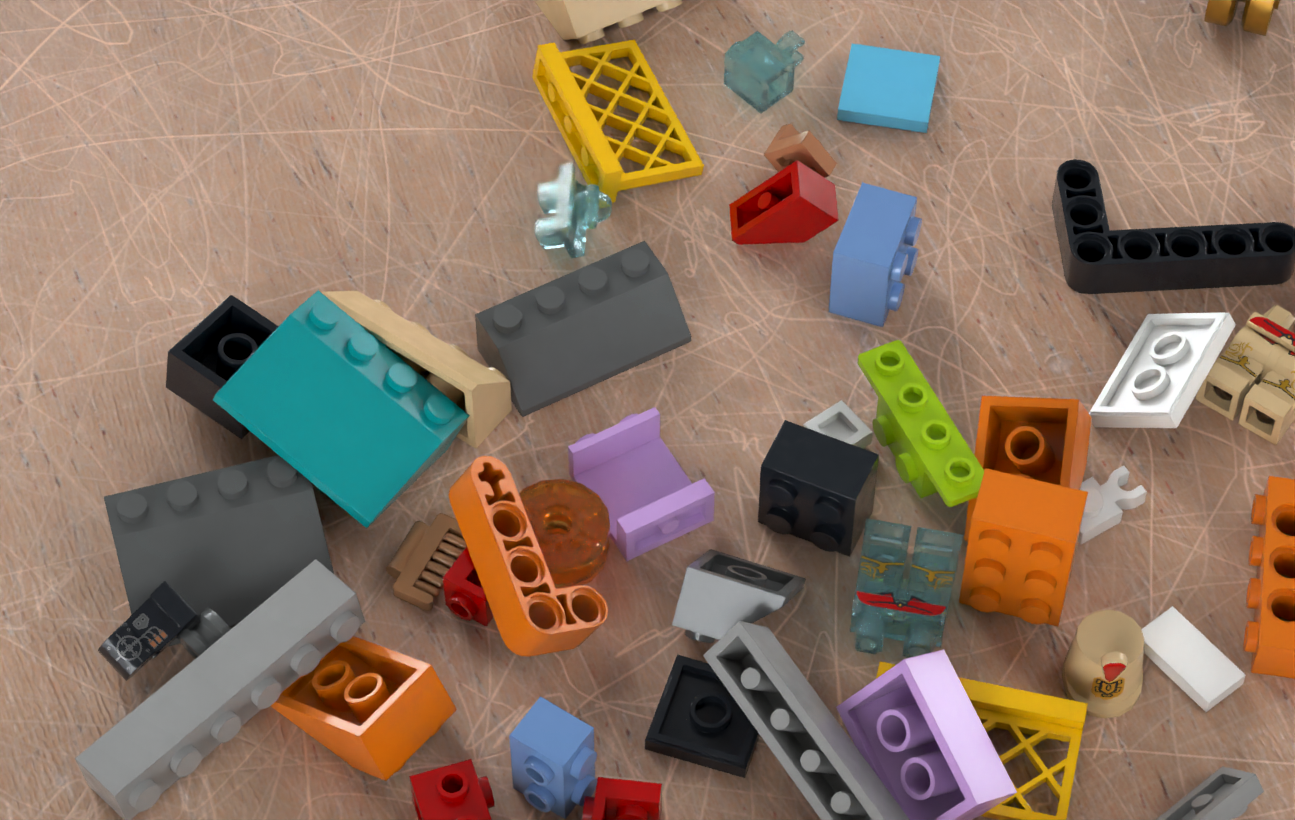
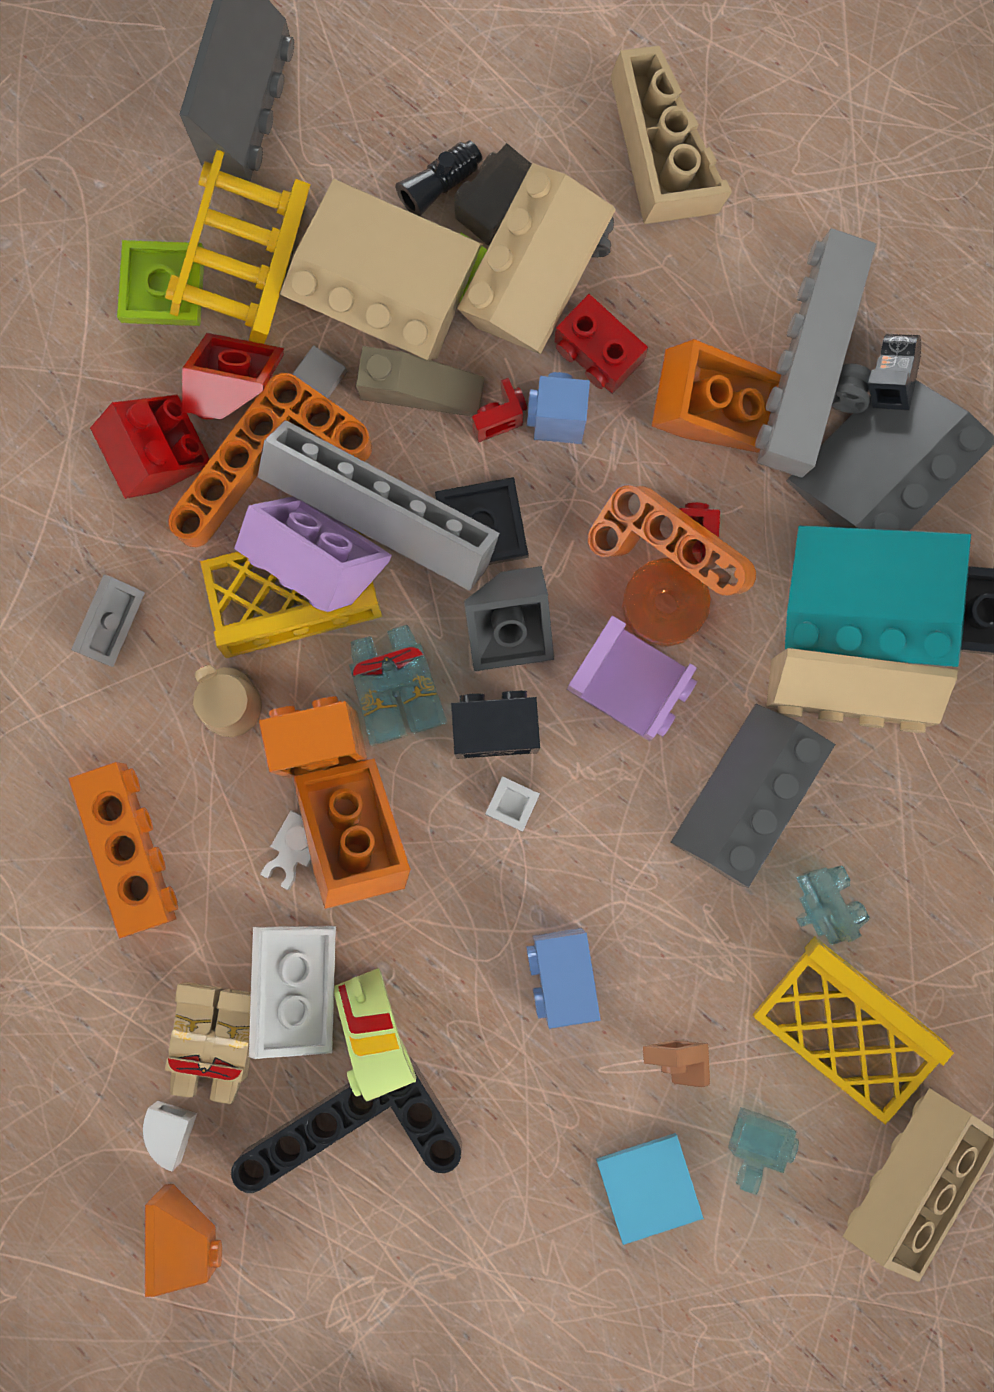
camera: 150 degrees right, 30 degrees up
(417, 556) = (756, 536): medium nougat piece -> none
(785, 208) = (663, 999): red slope -> none
(918, 428) = (456, 837): lime bracket -> none
(1097, 293) = (372, 1037): none -> yellowish green door
(1190, 659) = (171, 746): white tile -> none

